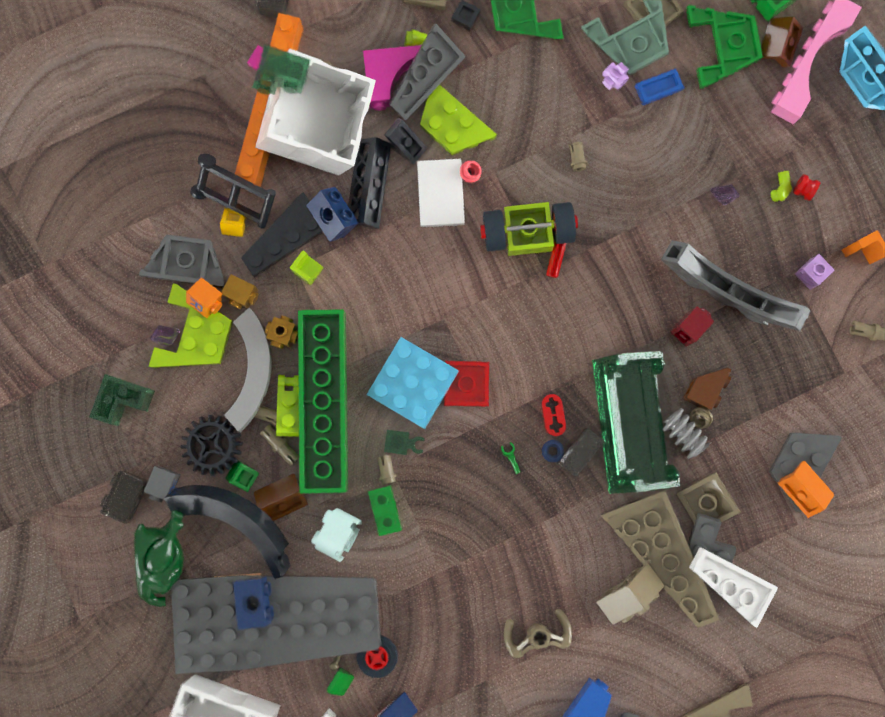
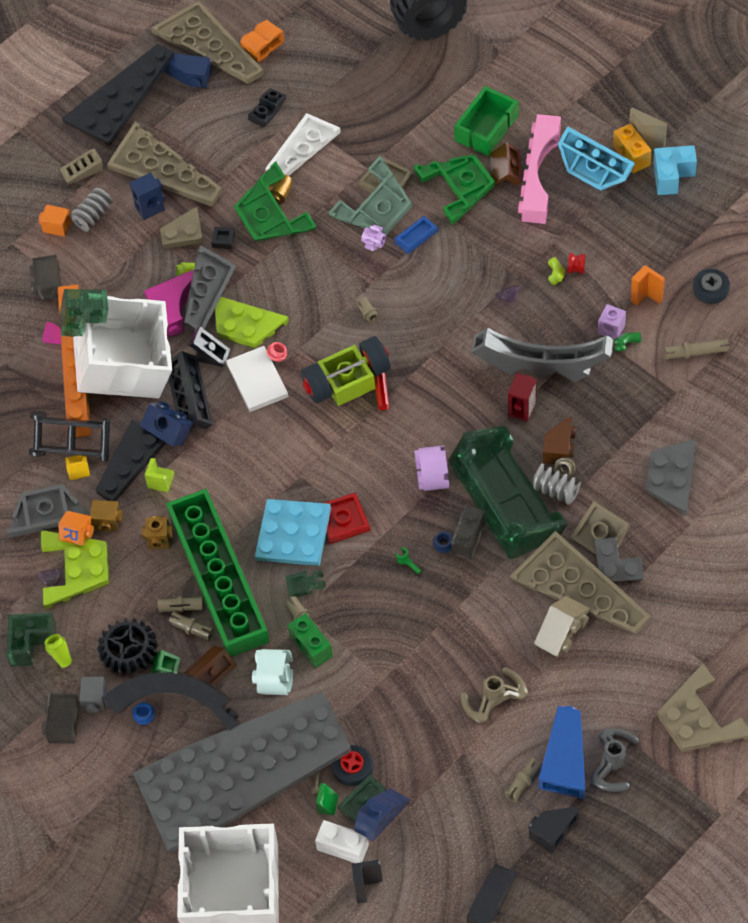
camera: 15 degrees left, 25 degrees down
(143, 424) = (58, 649): none -> lime cone
(158, 559) = (114, 751): dark green piece -> none
(203, 523) = (143, 713): none -> blue plate
(246, 614) = (220, 761): dark blue brick -> none
(258, 370) = (148, 572): light grey tile -> none
(287, 407) = (186, 588): lime plate -> none
(373, 695) = (359, 796): none -> clear green plate
(559, 414) = (428, 517): red beam -> none
(573, 371) = (433, 468): none -> lavender brick
(735, 585) = (656, 585): white wing -> none
(807, 490) = (680, 487): orange panel -> none
(819, 293) = (632, 337): none -> green arm

